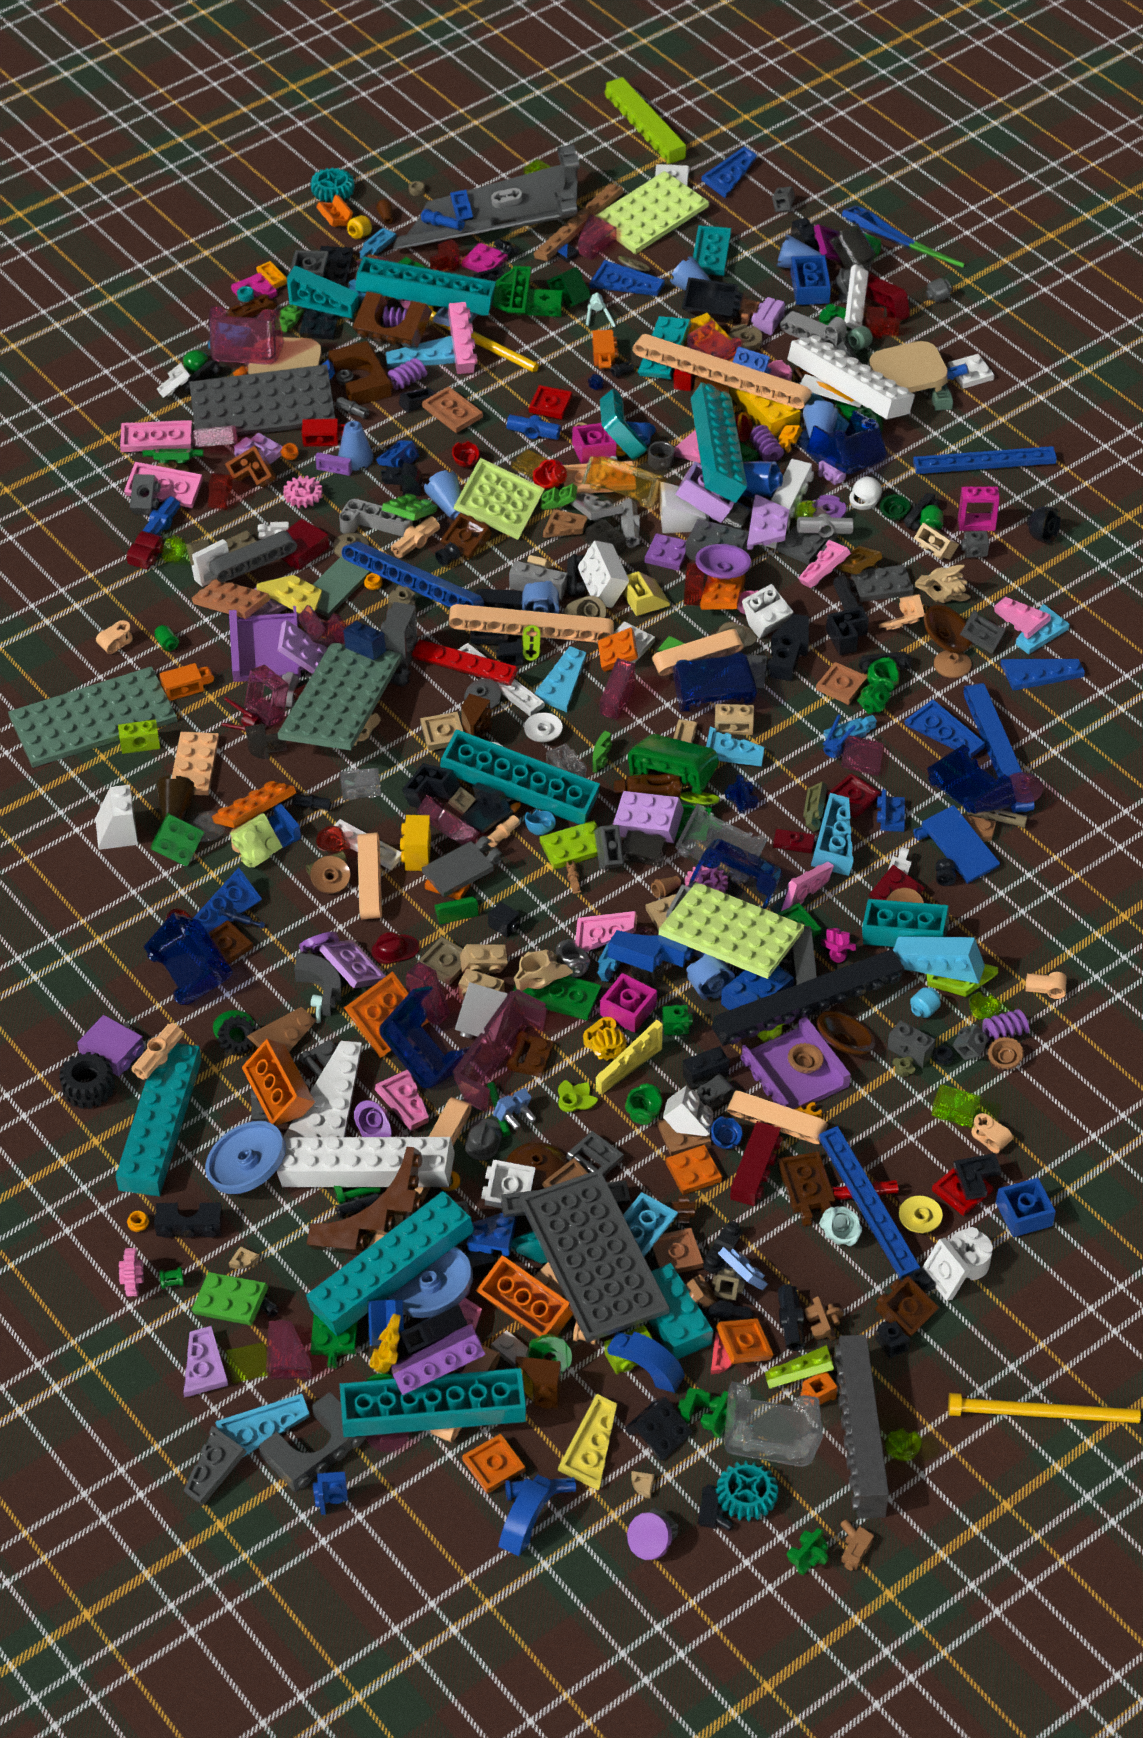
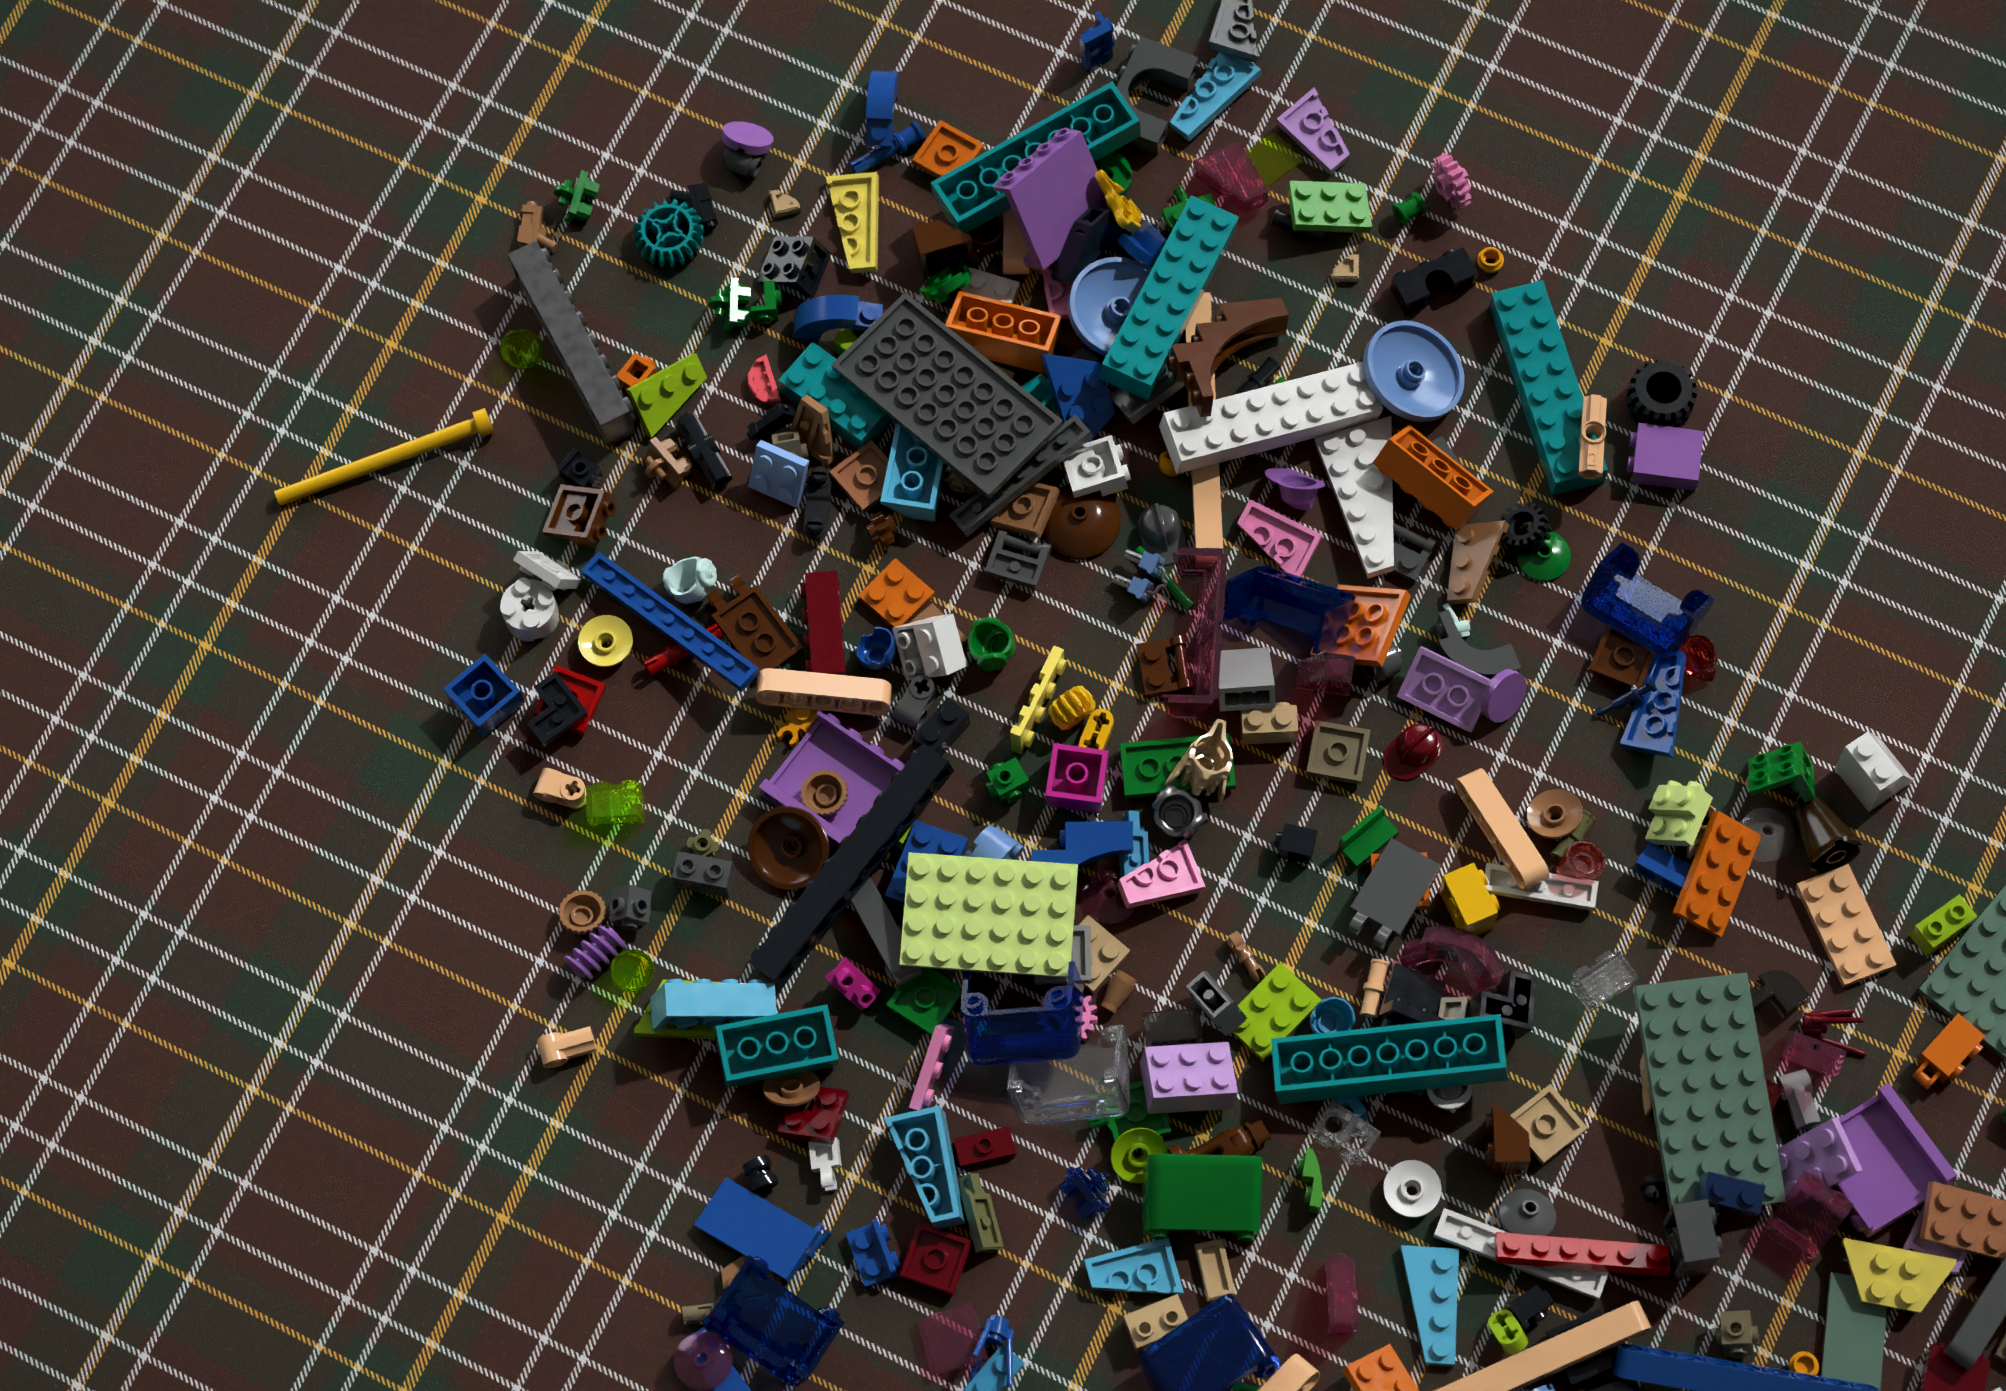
camera: 160 degrees right, 20 degrees up
(312, 802) = (1650, 926): black axle -> none
(484, 958) = (1287, 760): tan brick -> none
(576, 1095) = (1081, 636): lime plate -> none
(744, 1341) = (741, 395): orange plate -> none
(771, 1429) = (667, 301): clear windscreen -> none
(923, 1280) = (575, 559): black tile -> none
(925, 1002) = (709, 944): medium azure head -> none
(943, 1055) = (660, 882): black plate -> none

